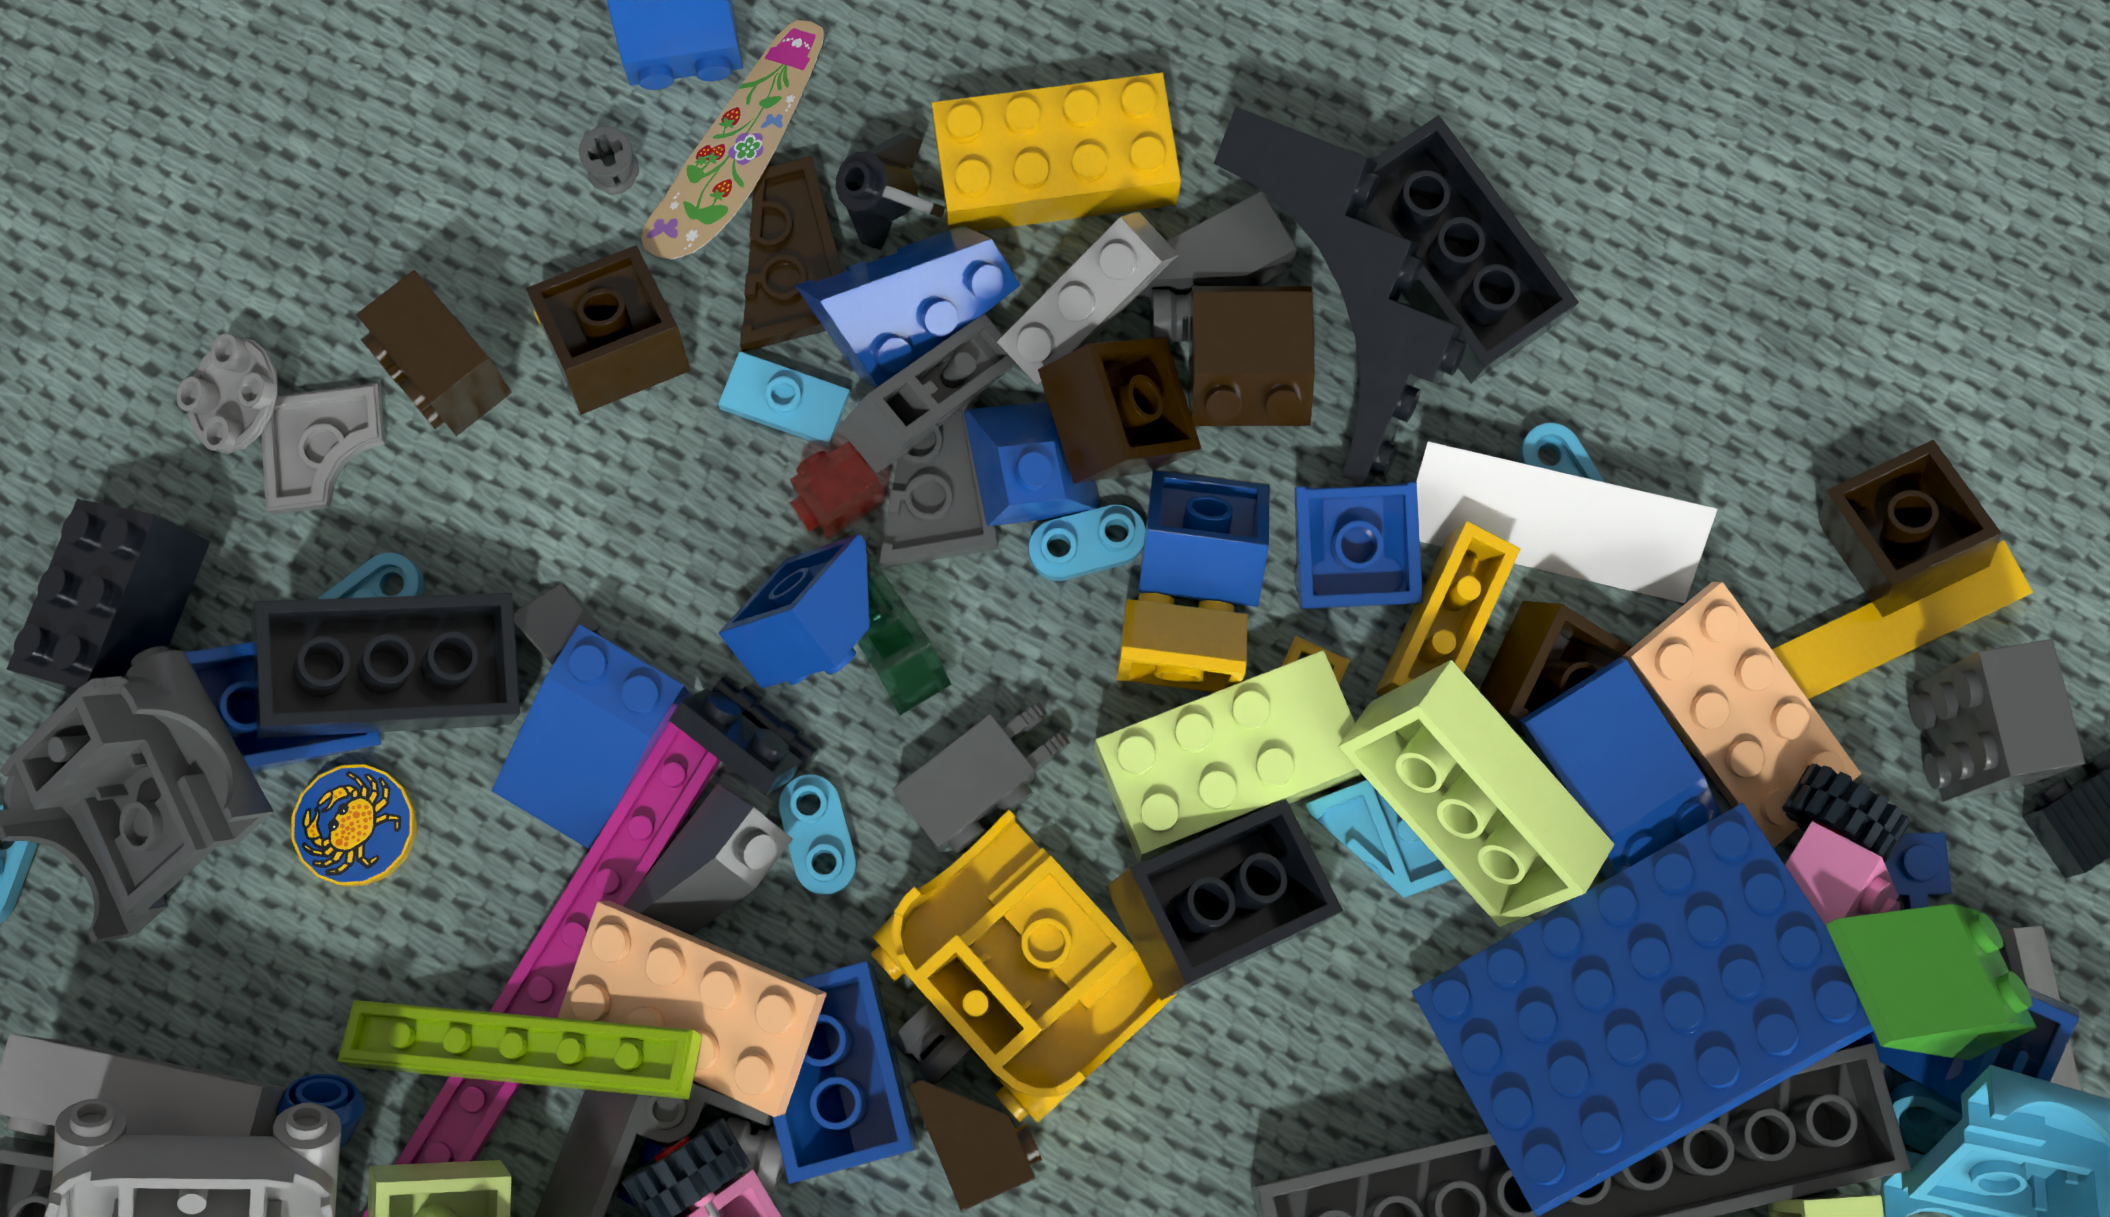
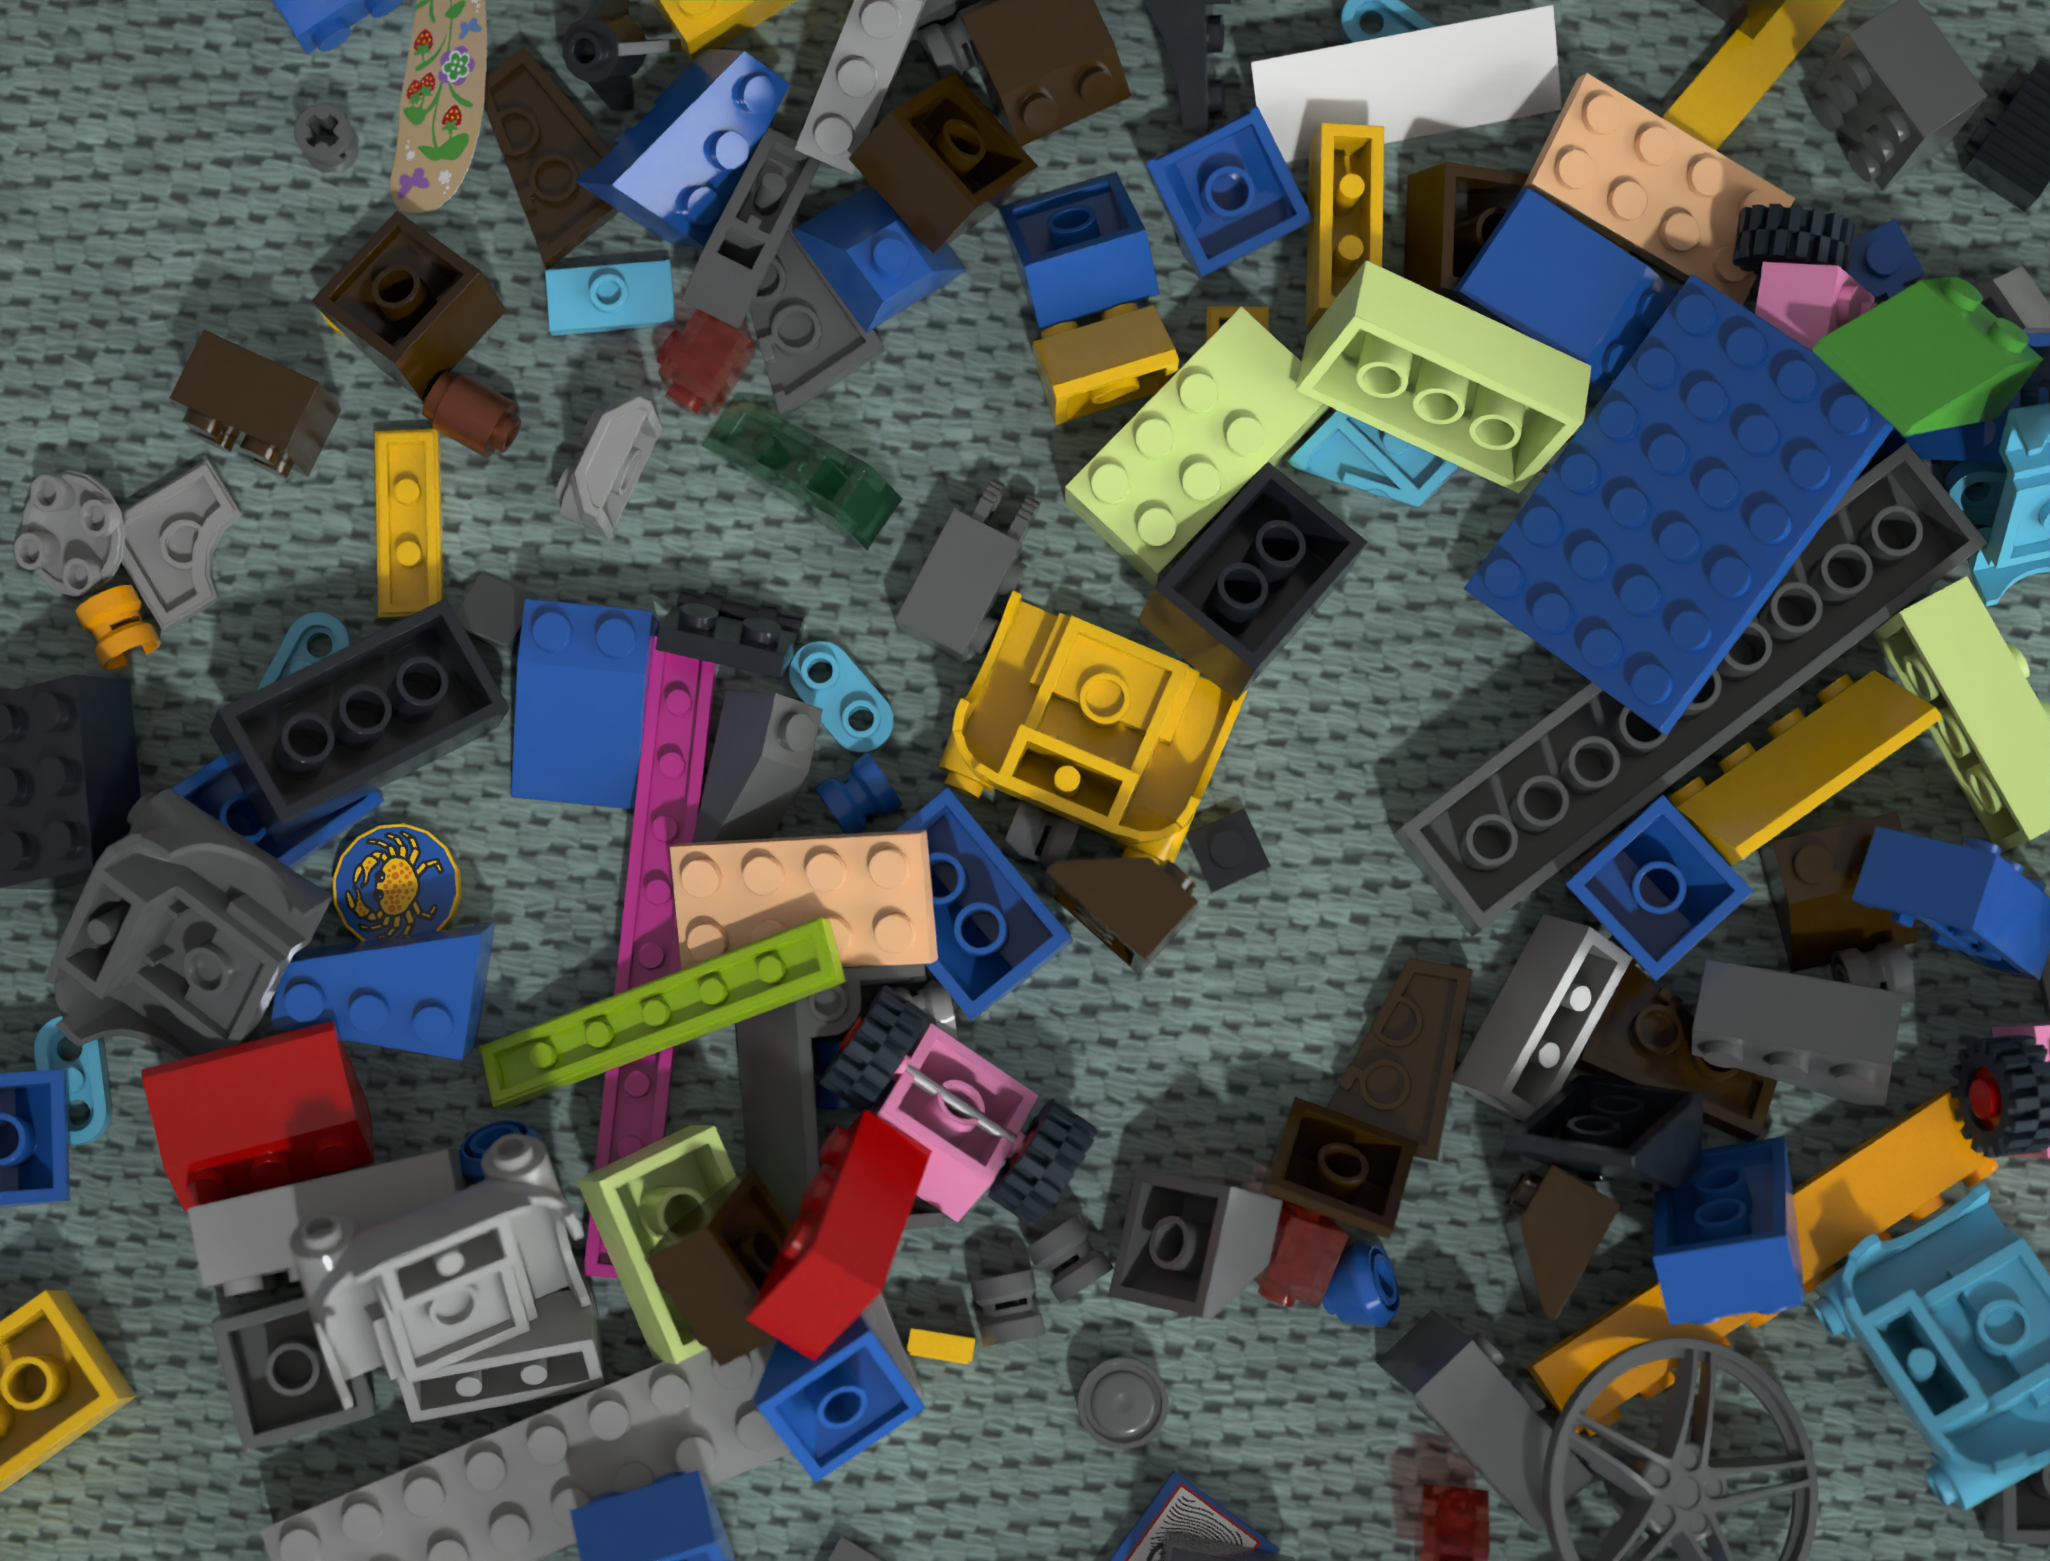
camera: 20 degrees left, 5 degrees up
(125, 976) = (259, 1115): none -> red slope
(228, 489) = (116, 625): none -> light orange wheel
(297, 918) = (393, 992): none -> blue wedge
(520, 513) = (408, 521): none -> yellow tile
(617, 445) = (472, 414): none -> copper brick
(711, 541) = (609, 466): none -> light grey slope
(789, 930) = (861, 794): none -> blue wheel
(804, 615) = (734, 494): blue slope -> none
(1087, 541) = (969, 306): medium azure plate -> none
(1095, 1130) = (1227, 850): none -> black plate

